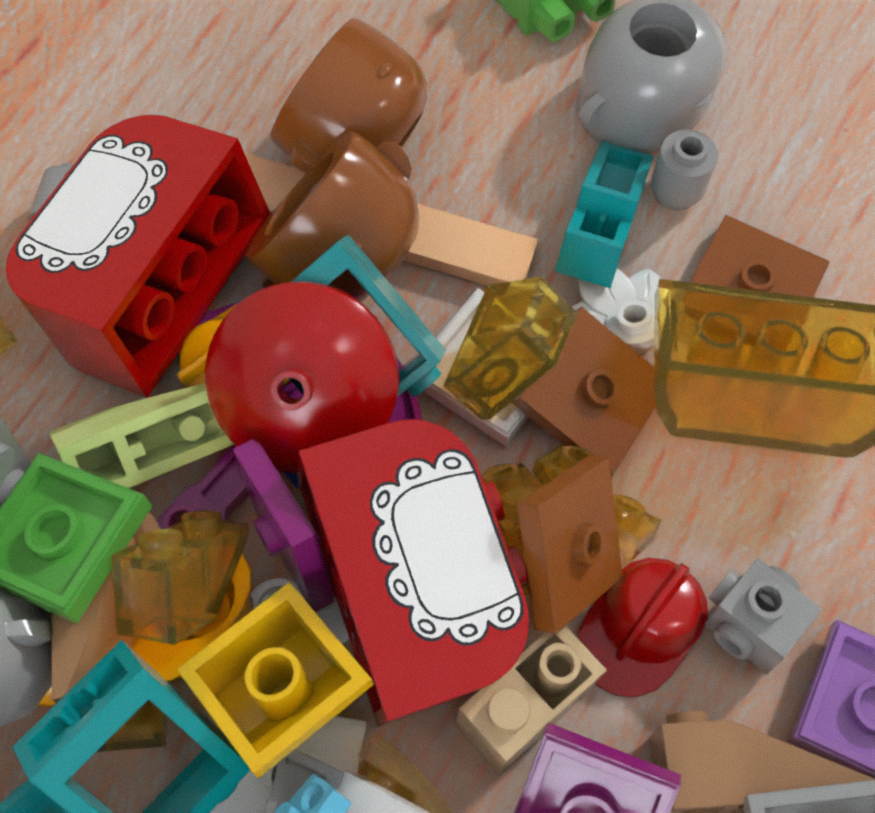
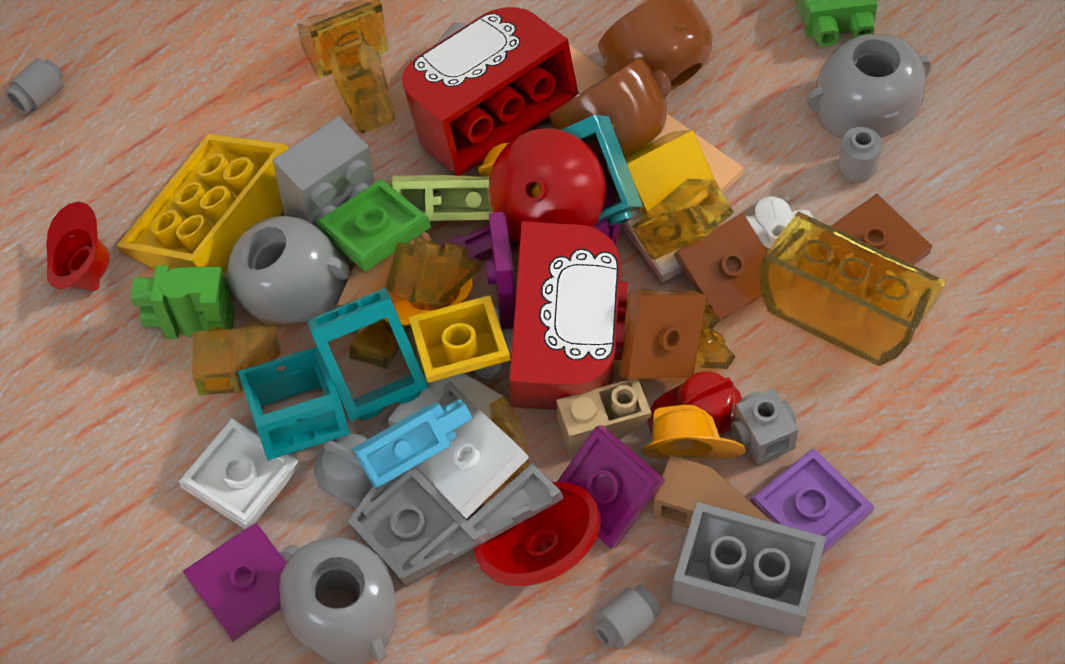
camera: 30 degrees right, 5 degrees down
(447, 278) = (665, 166): none -> yellow slope
(604, 214) = (793, 165): teal slope -> none
(658, 672) = (688, 432): none -> light orange piece

